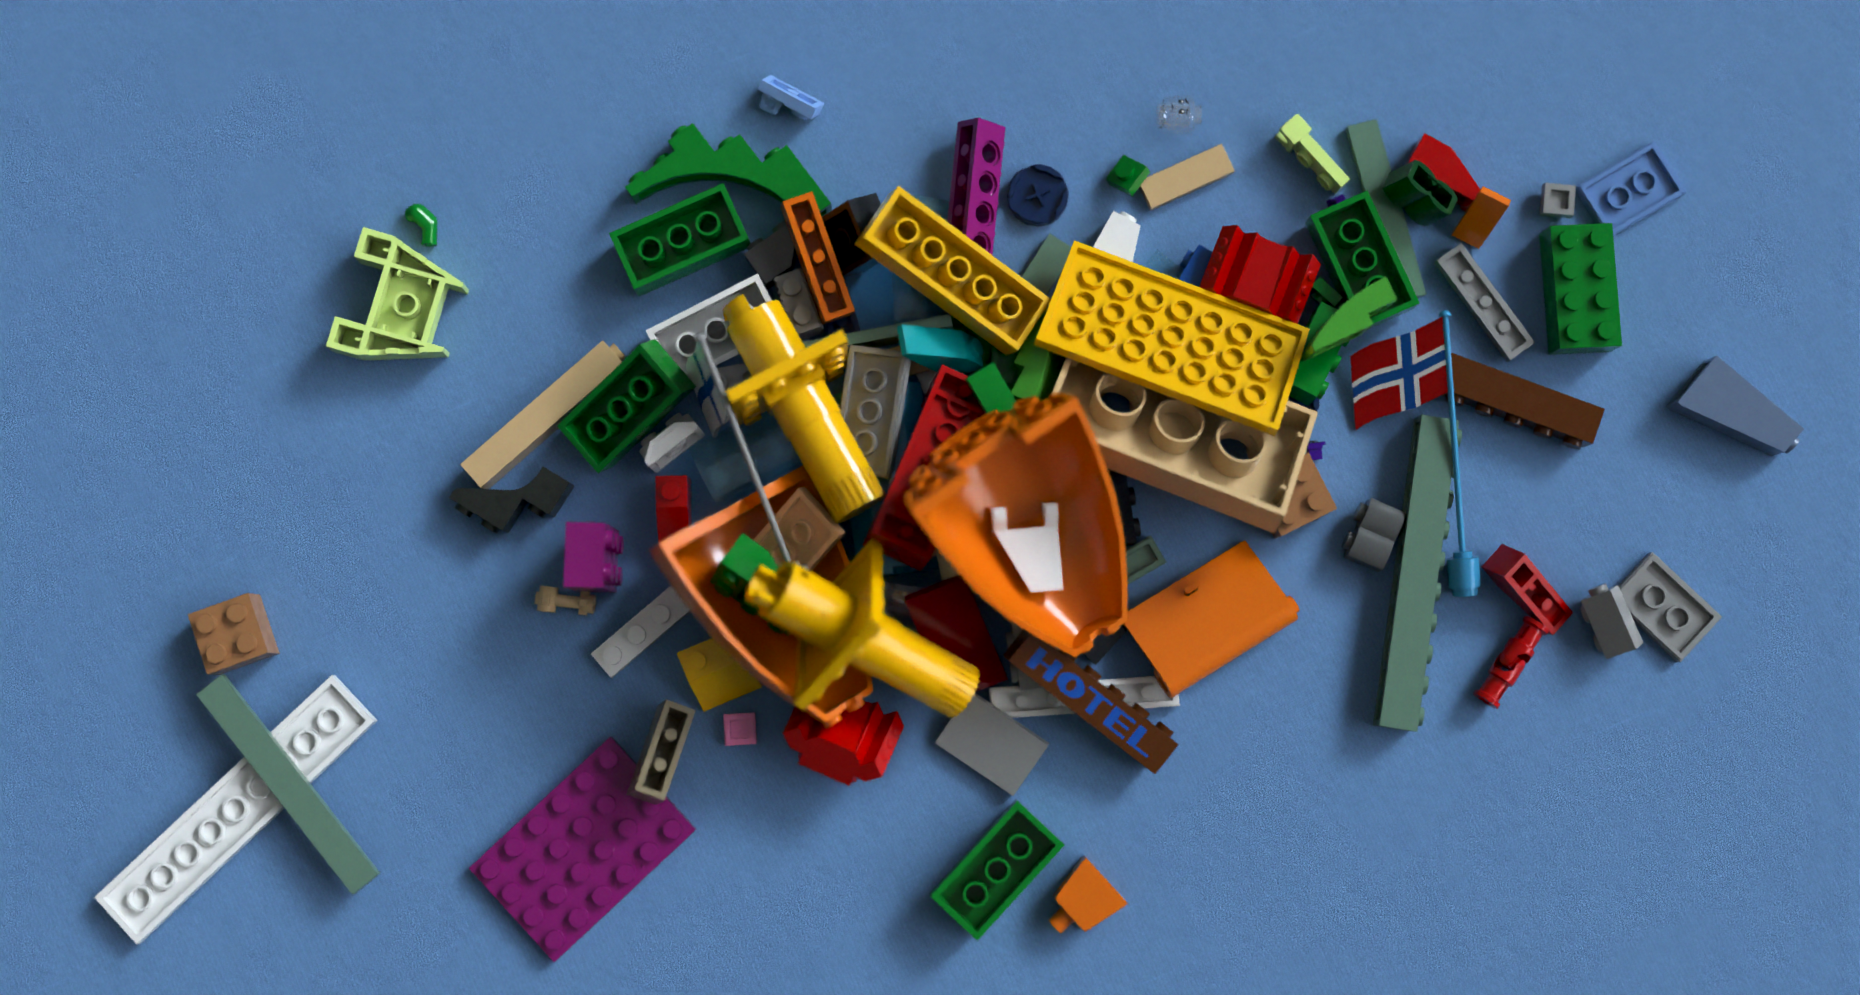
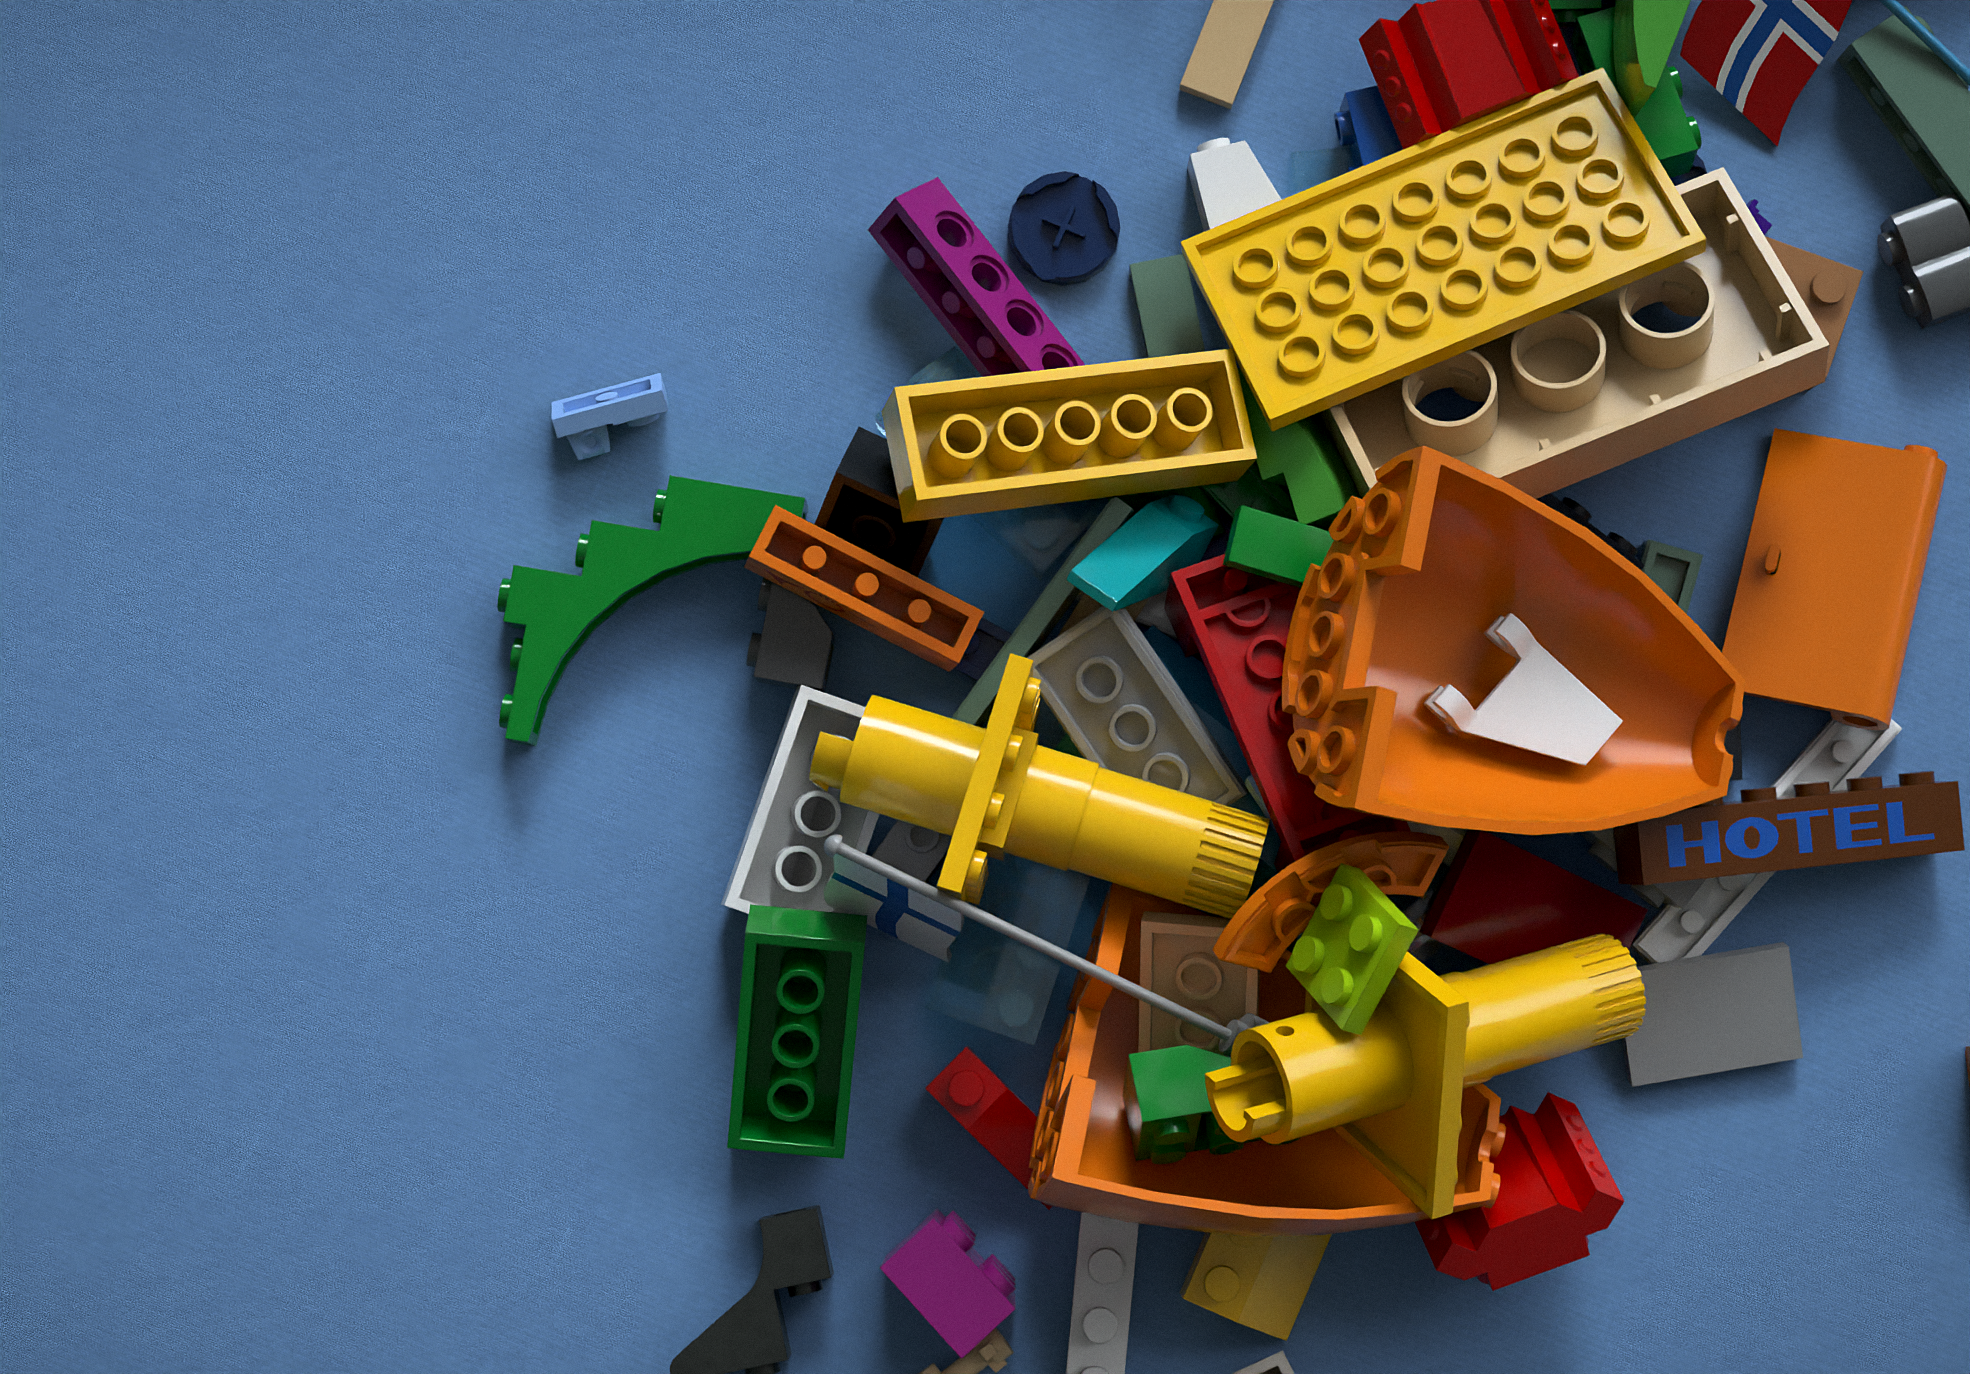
camera: 35 degrees left, 0 degrees up
(403, 307) = (358, 1182): yellowish green wedge -> none
(426, 220) = (273, 1039): green arm -> none
(540, 417) = (691, 1148): tan brick -> none
(671, 442) = (893, 1043): white slope -> none
(680, 239) = (648, 737): green brick -> none
(740, 729) = (1357, 1317): bright pink tile -> none
(798, 303) = (888, 671): light grey brick -> none
(862, 568) = (1351, 948): none -> lime plate
(867, 530) = (1285, 904): none -> orange tile
(996, 869) = (1879, 1177): green brick -> none
(1127, 175) = (1159, 90): green plate -> none

